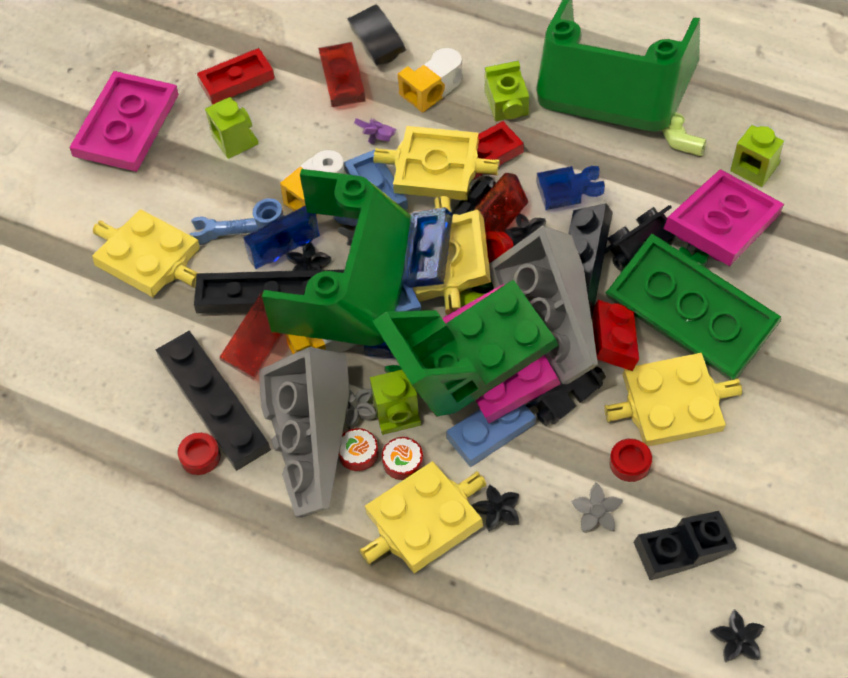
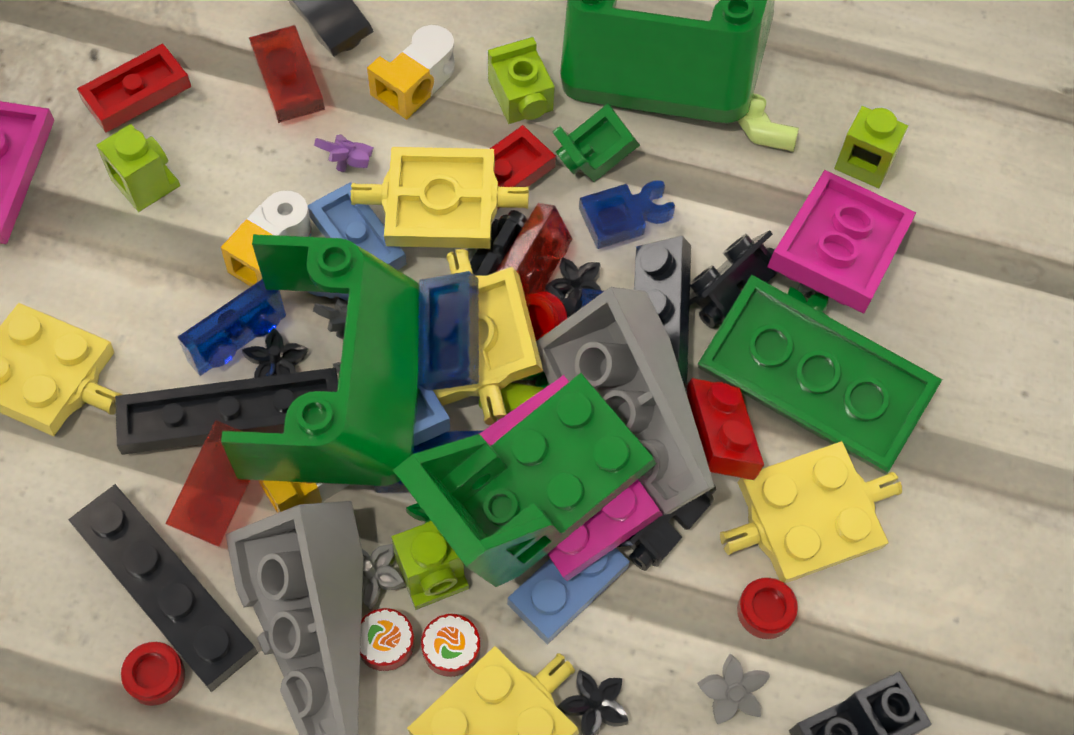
camera: 15 degrees left, 5 degrees up
(264, 213) = (203, 295): medium blue brick -> none
(554, 138) = (596, 144): none -> green bracket

